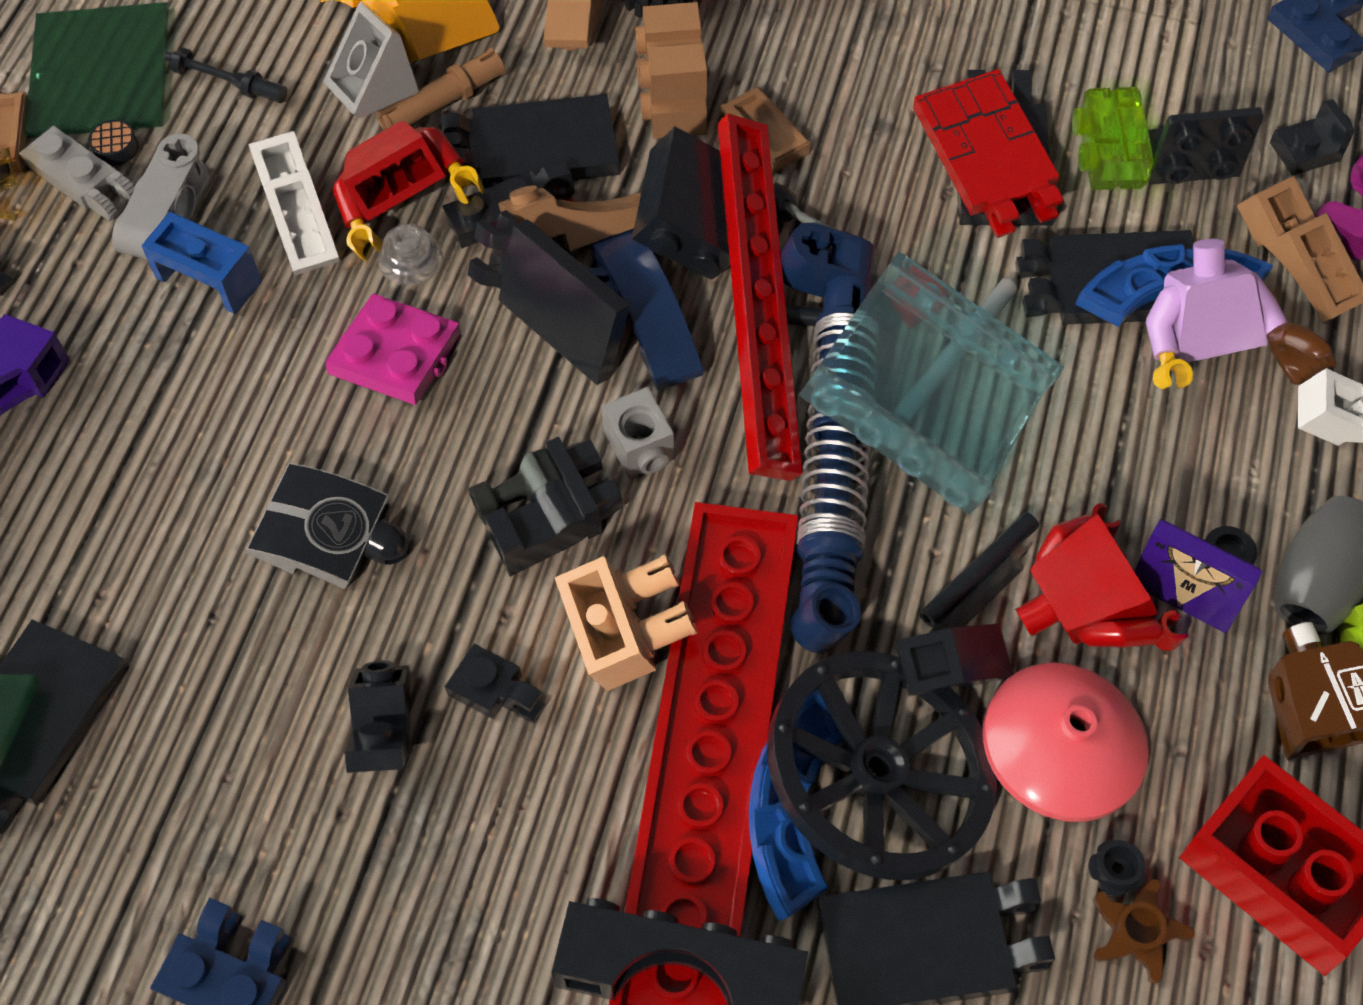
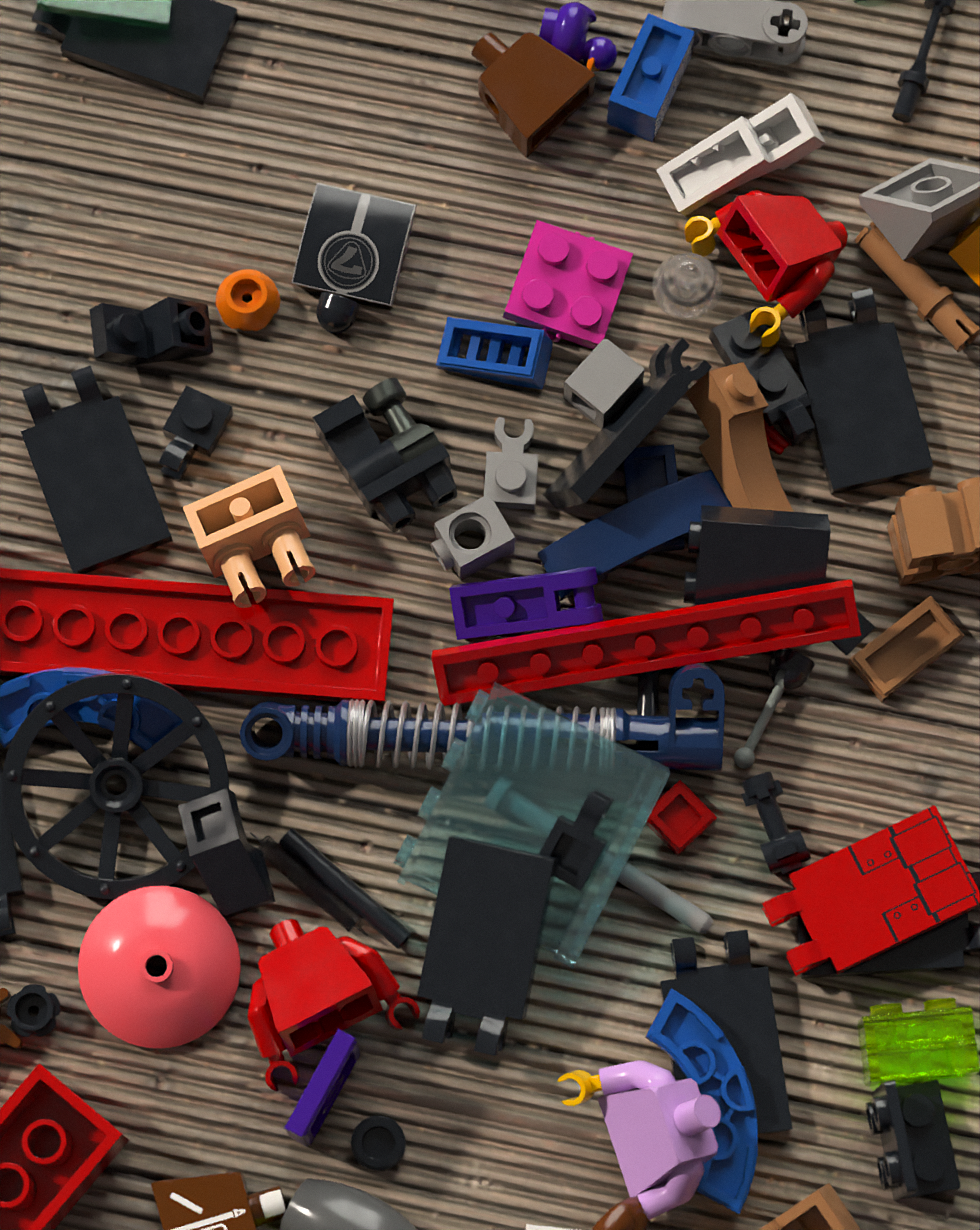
camera: 85 degrees right, 15 degrees up
(145, 328) = (568, 32): none -> dark purple animal
(187, 362) = (530, 87): none -> reddish brown torso
(360, 642) = (247, 315): none -> orange plate
(449, 373) = (512, 373): none -> blue slope
(503, 317) = (603, 383): none -> light grey panel
(529, 788) = (93, 477): none -> black tile
(573, 407) = (511, 473): none -> light grey plate
(709, 392) = (524, 603): none -> dark purple plate
(942, 218) = (784, 849): none -> black bar
(955, 348) = (576, 842): none -> black plate
(1041, 435) = (484, 938): none -> black tile

